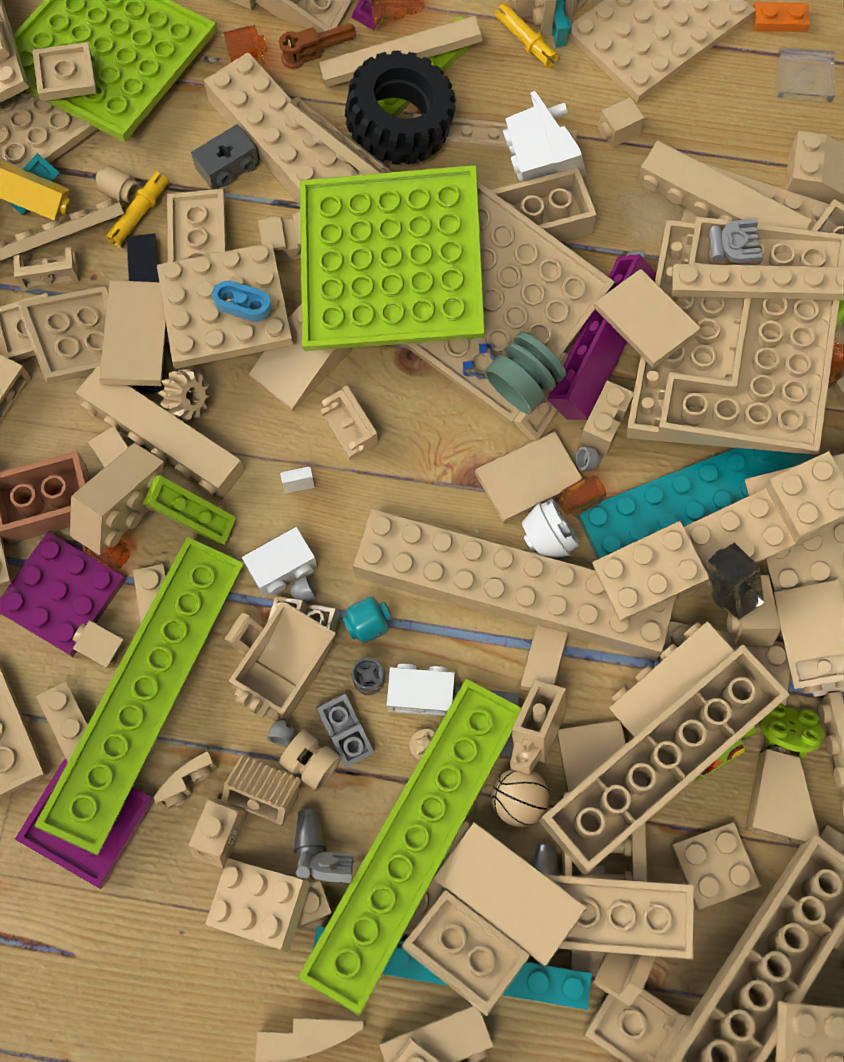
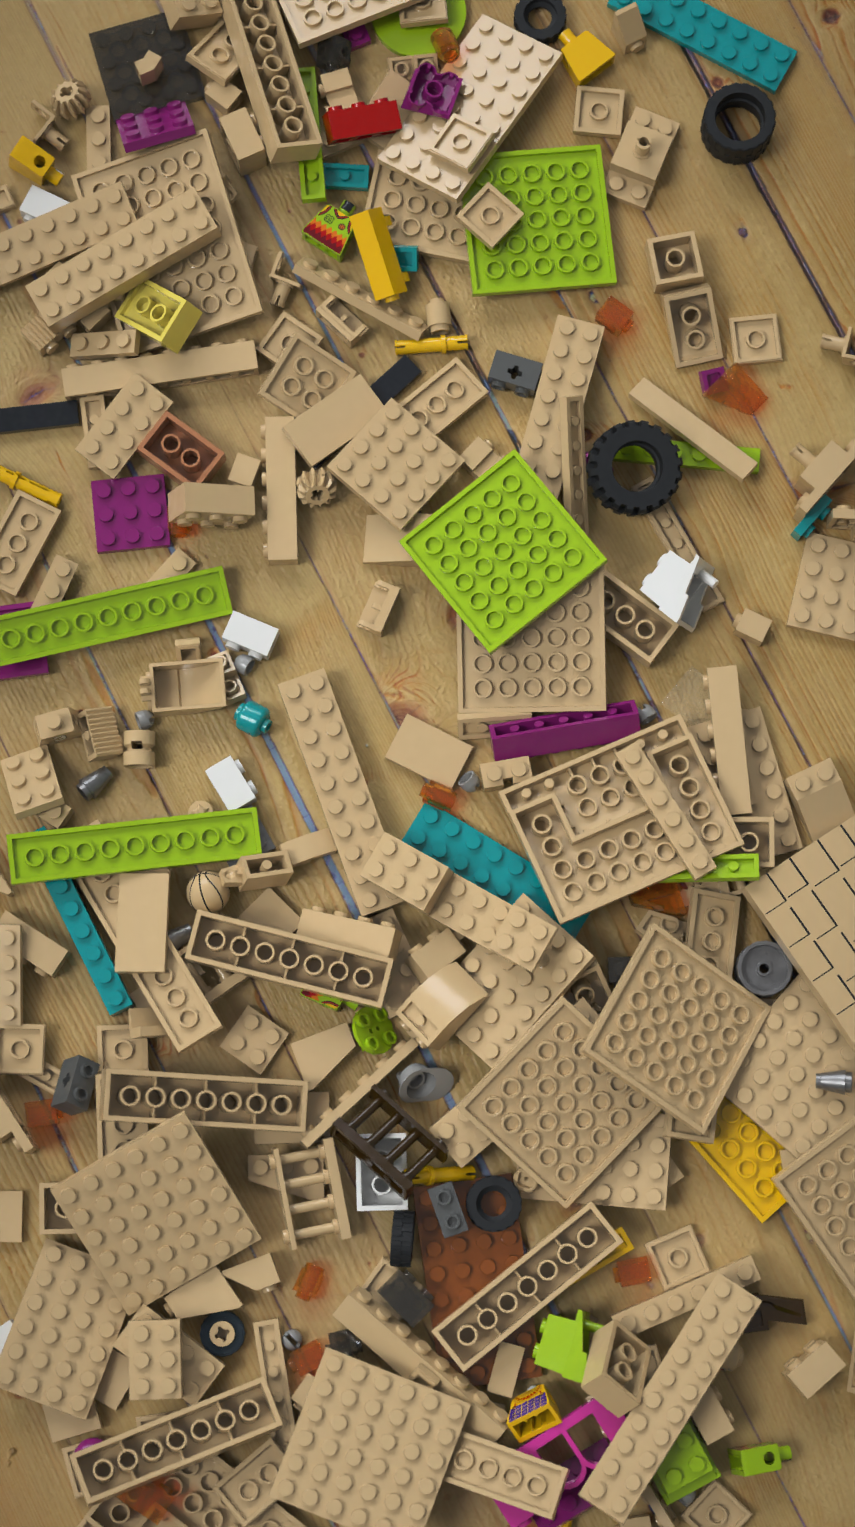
camera: 50 degrees right, 10 degrees up
(98, 643) = (116, 565): tan brick -> none
(176, 787) = (65, 682): tan slope -> none
(189, 510) = (239, 554): lime plate -> none
(244, 301) = (399, 479): dark azure plate -> none
(297, 480) = (313, 604): white tile -> none
(307, 44) = (654, 361): dark orange connector -> none
(326, 866) = (81, 805): light grey piece -> none
(345, 730) = (174, 756): light grey slope -> none
(365, 671) = (214, 743): flat silver wheel -> none
(466, 952) = (90, 920): tan plate -> none
(469, 365) = (488, 658): blue piece -> none
(525, 373) = (487, 698): sand green wheel -> none
(533, 41) = (777, 517): yellow pin -> none
(549, 531) = (395, 791): white cone -> none
(647, 318) = (587, 750): tan tile -> none
(733, 241) = (683, 769): light grey piece -> none
(735, 581) = (433, 928): clear smoke brick -> none

